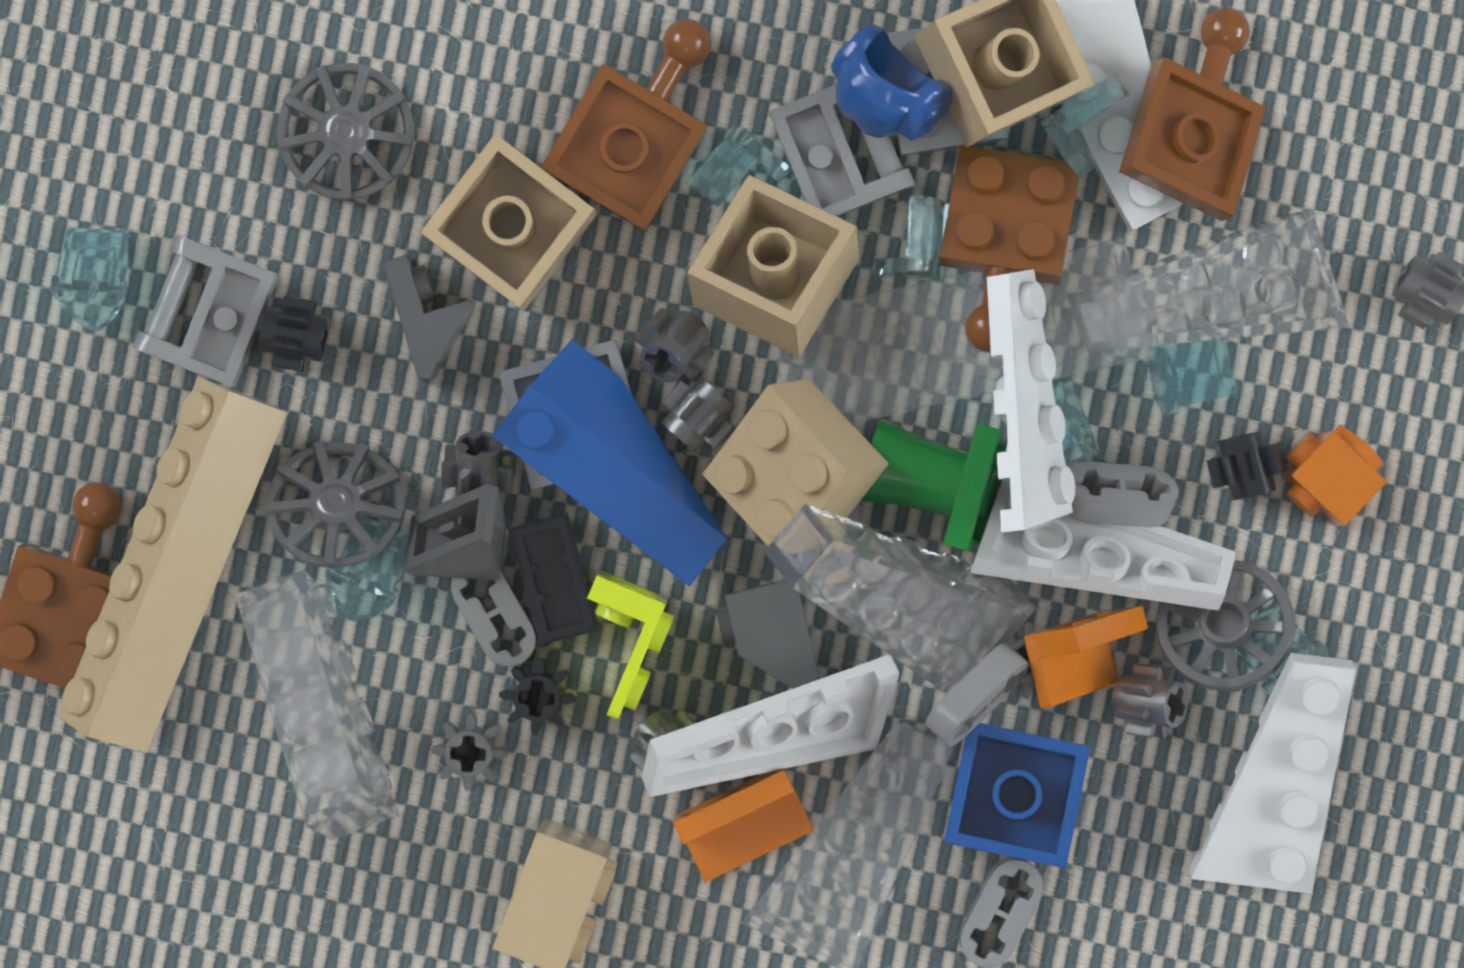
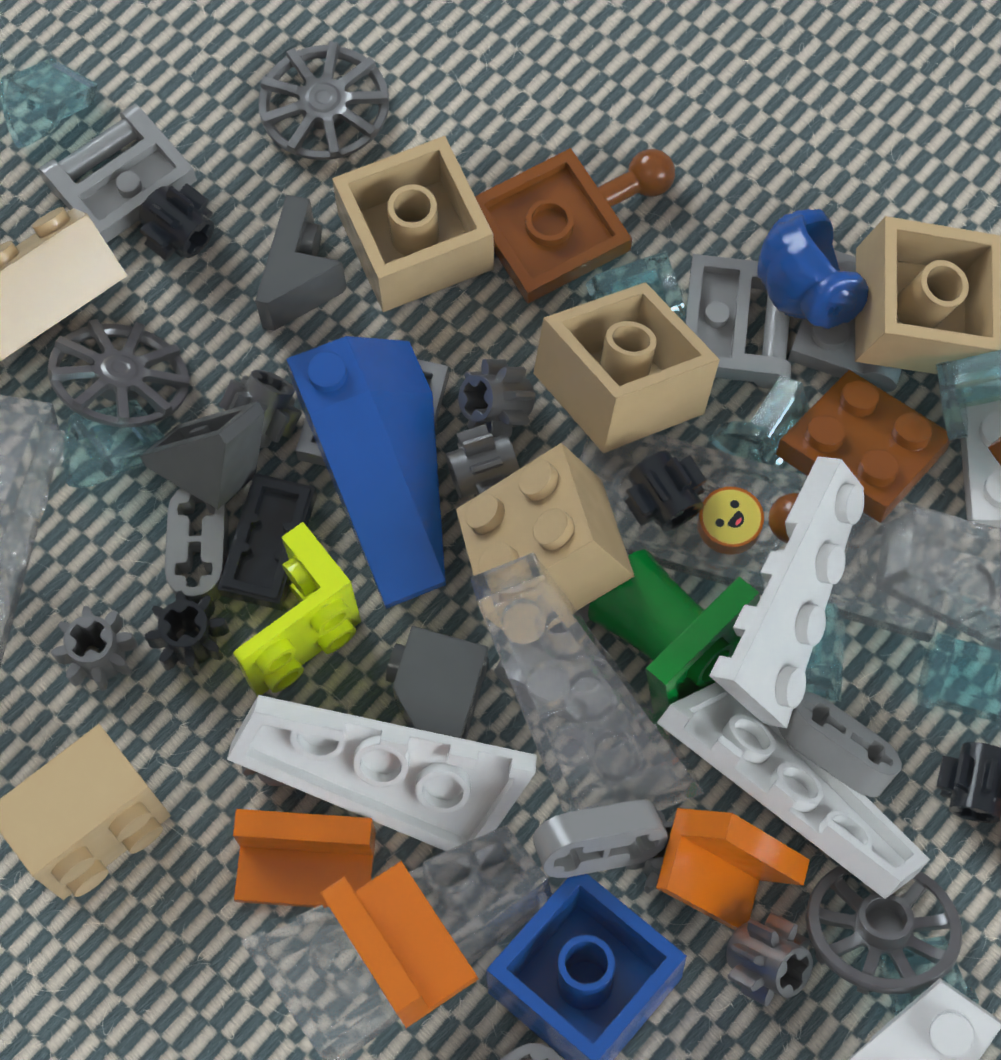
camera: 25 degrees right, 20 degrees down
(869, 862) = (401, 942): none -> orange panel
(870, 364) = (665, 490): none -> black gear
(934, 353) = (730, 520): none -> light yellow tile

